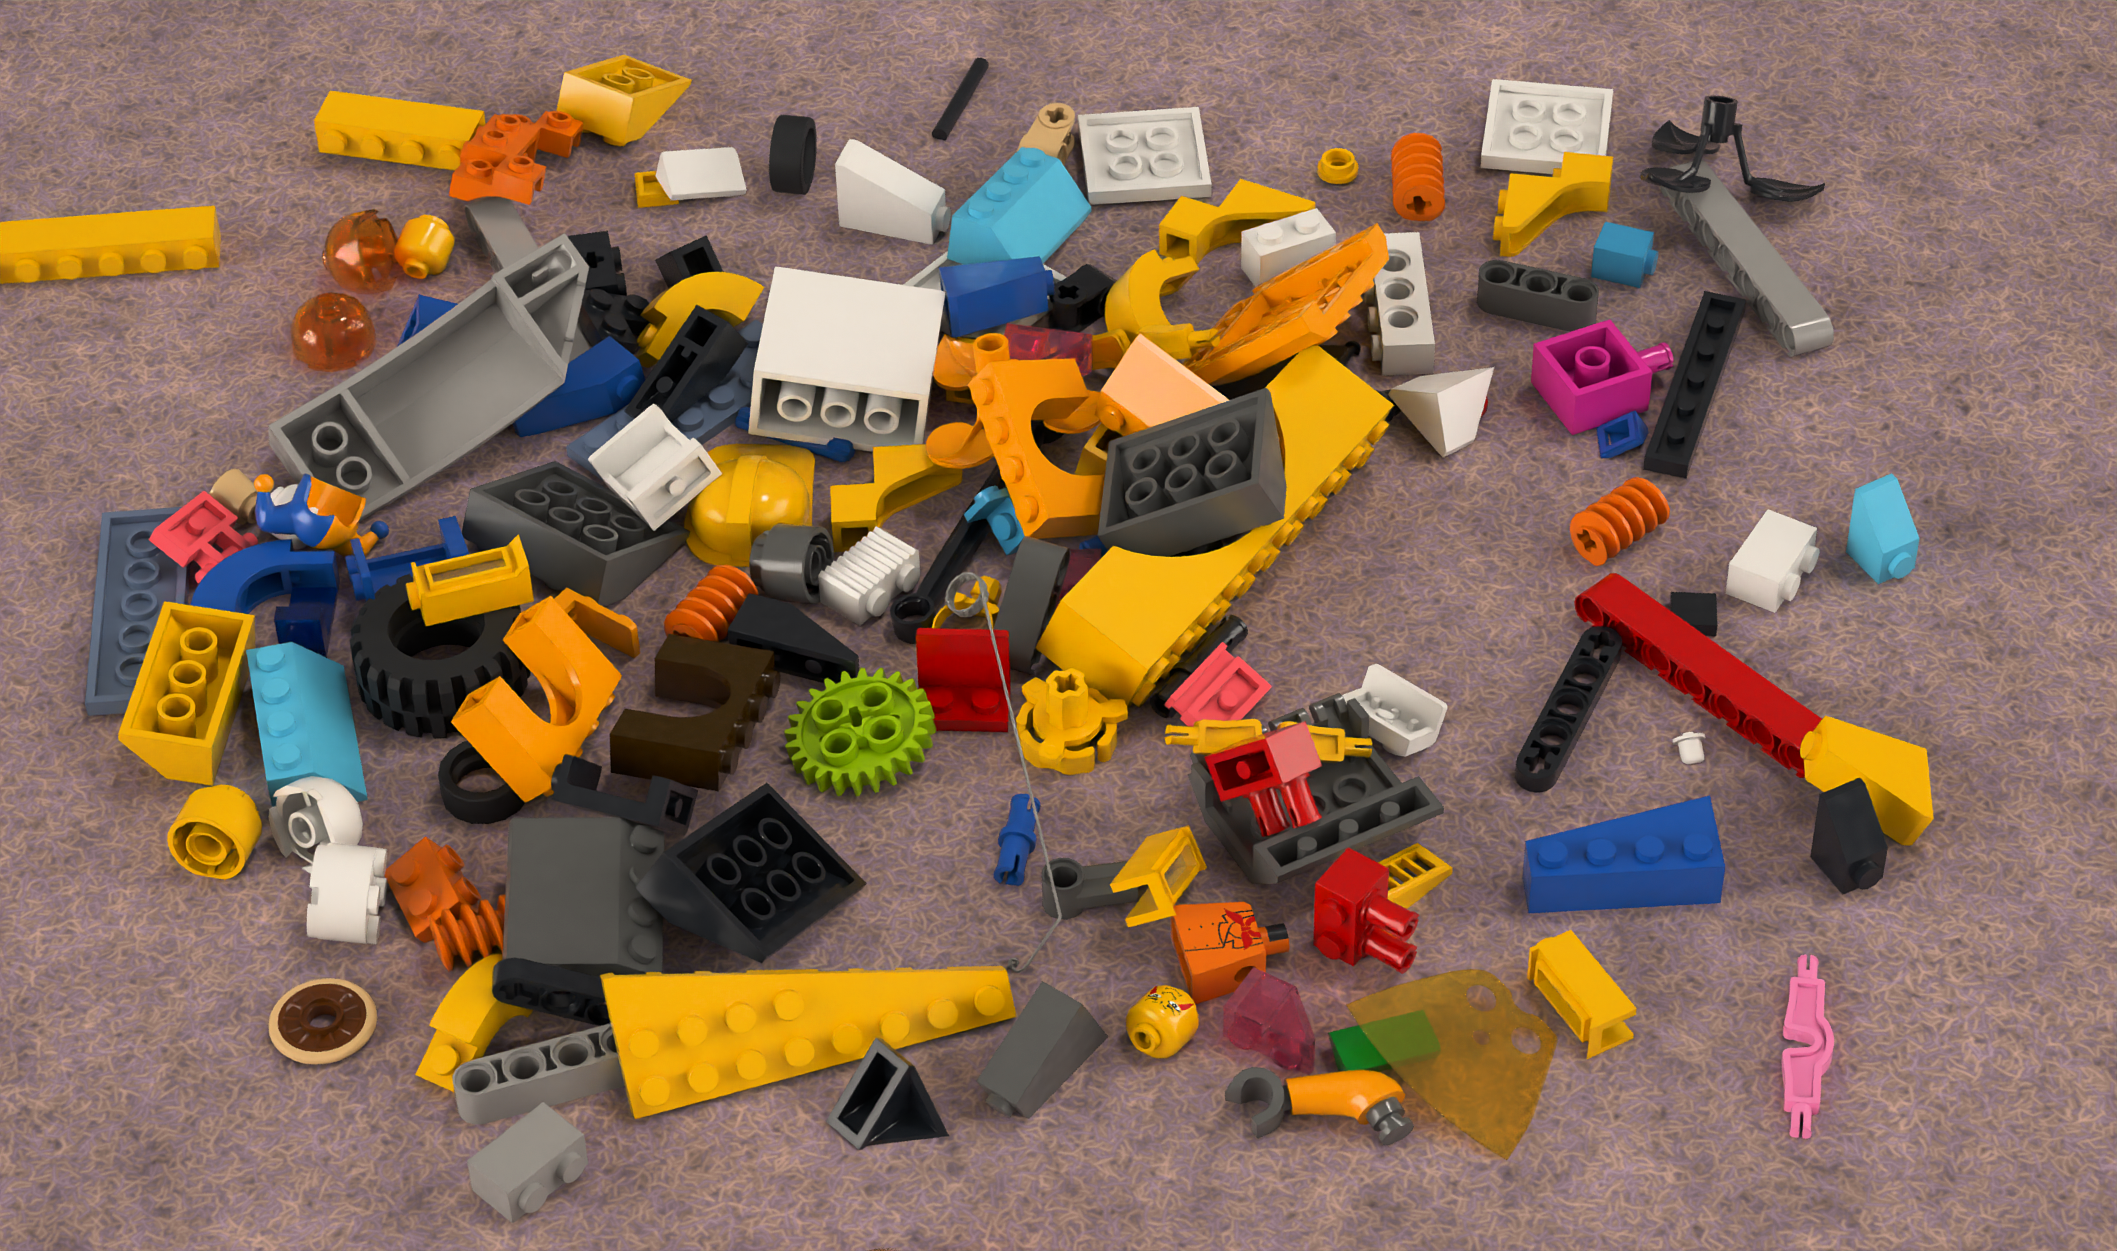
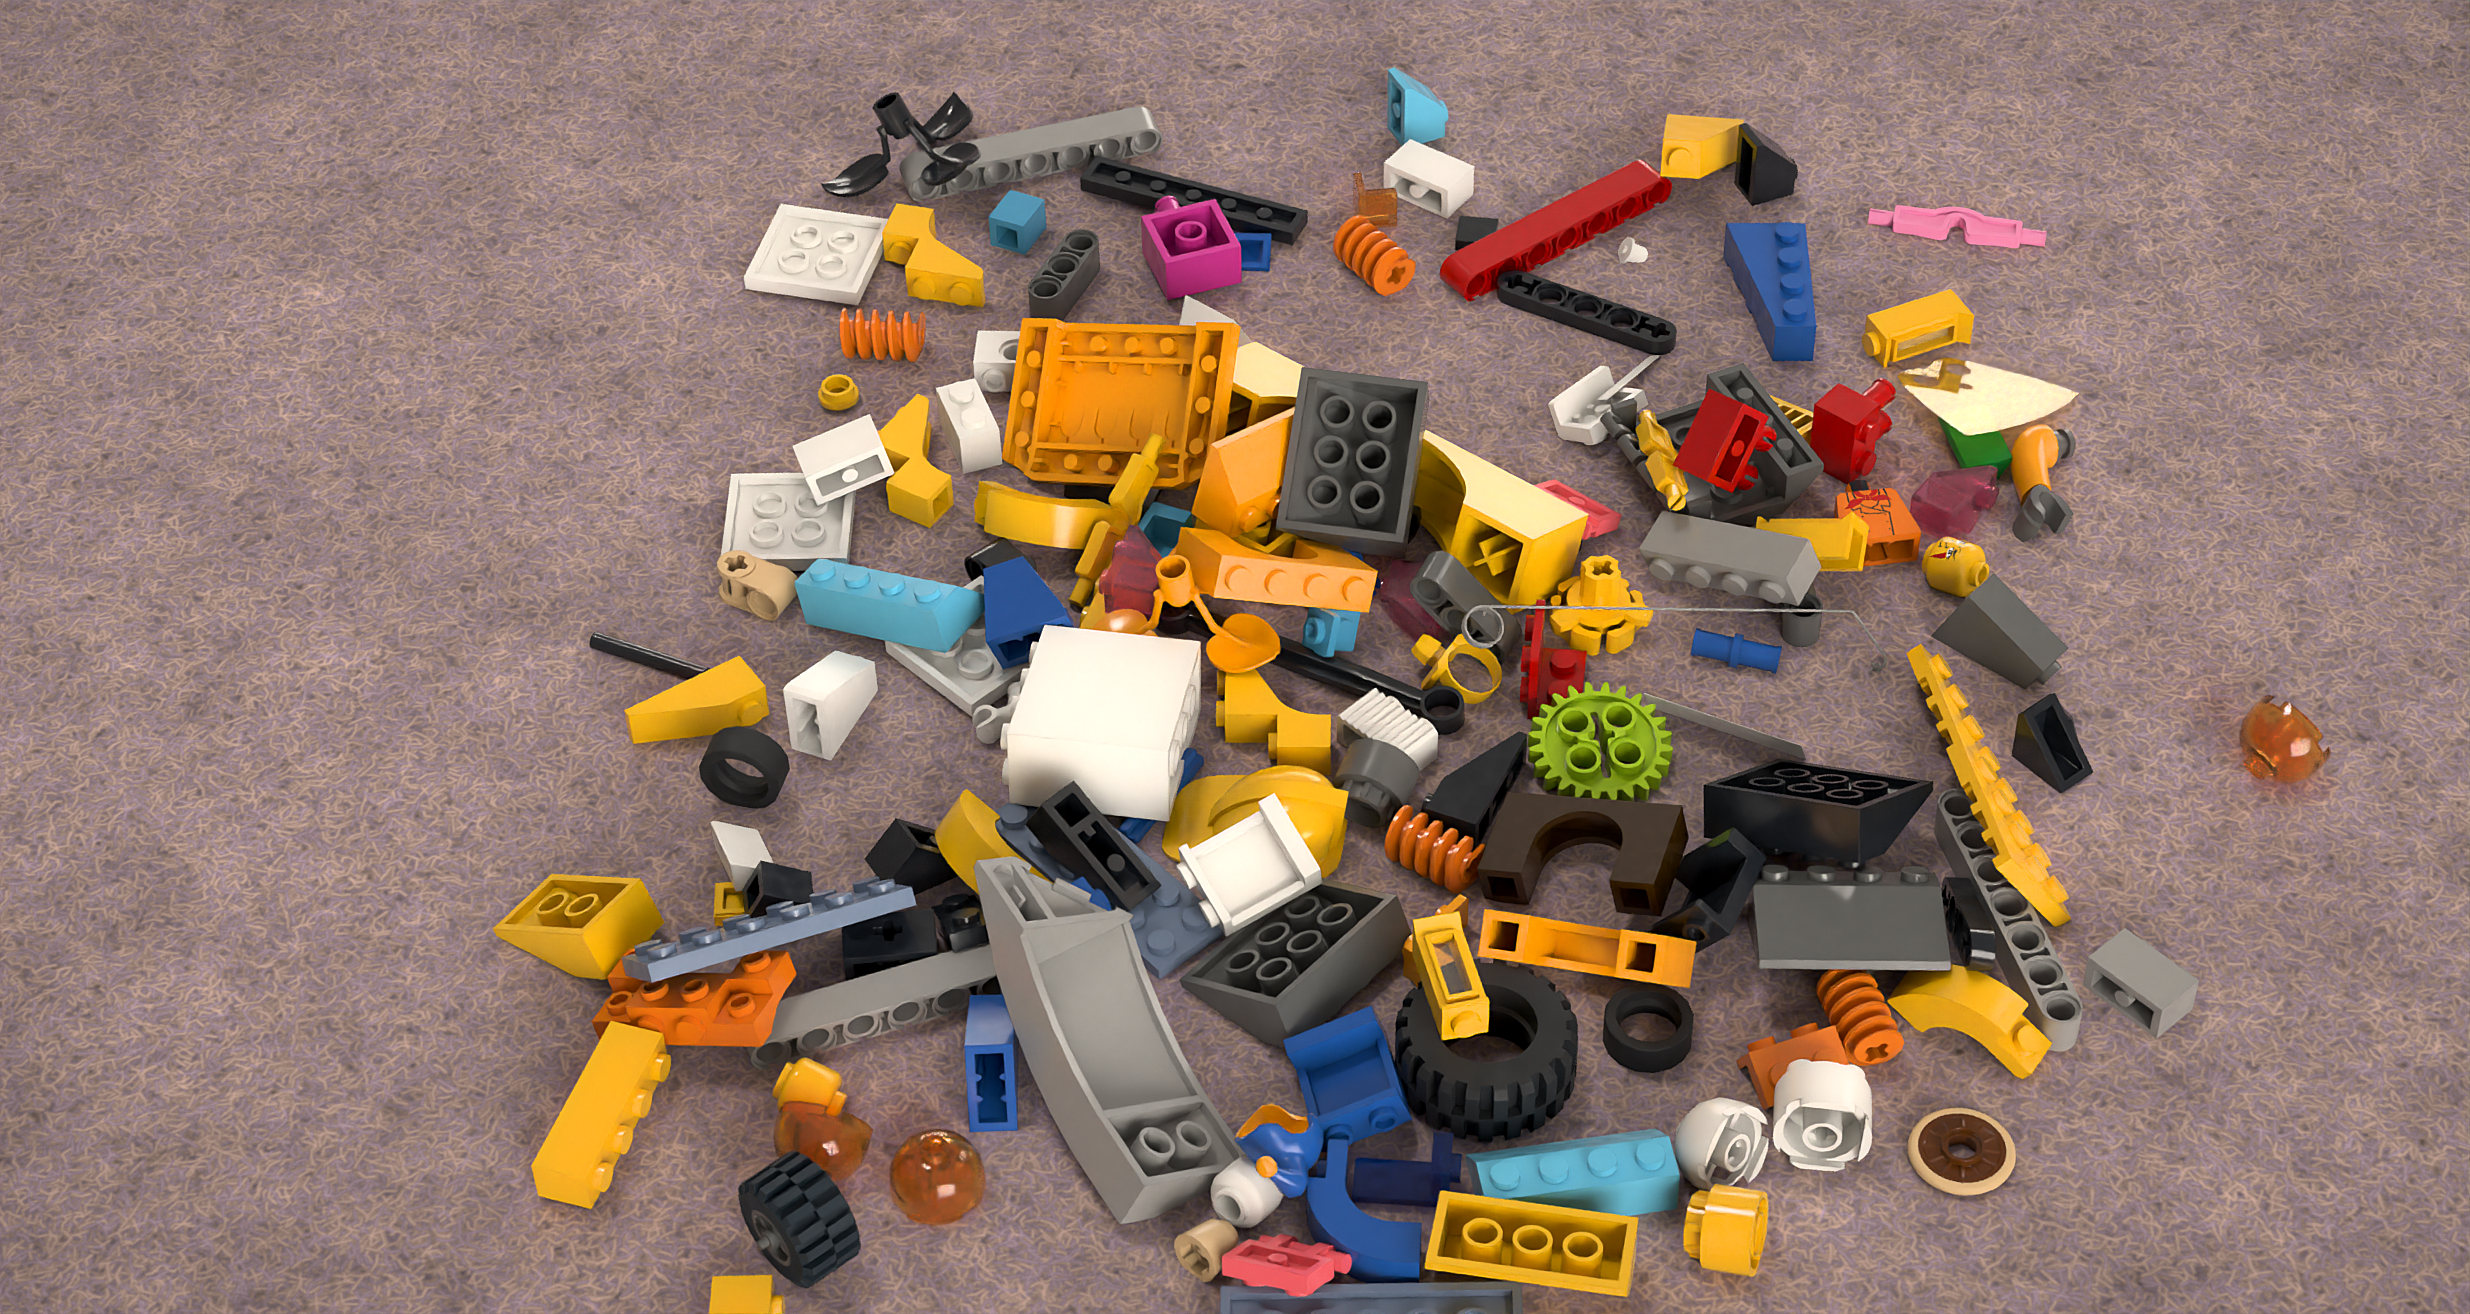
camera: 85 degrees left, 0 degrees up
(261, 239) = (799, 1219): none -> black wheel
(568, 175) = (780, 926): none -> sand blue plate
(642, 199) = (775, 885): none -> black brick
(892, 129) = (701, 706): none -> yellow slope
(894, 828) = (1726, 726): none -> white sticker
(1122, 808) = (1730, 558): none -> light grey brick
(1197, 157) = (843, 459): none -> white brick
(1453, 742) = (1628, 377): none -> white sticker
(1715, 517) = (1375, 204): none -> clear orange panel

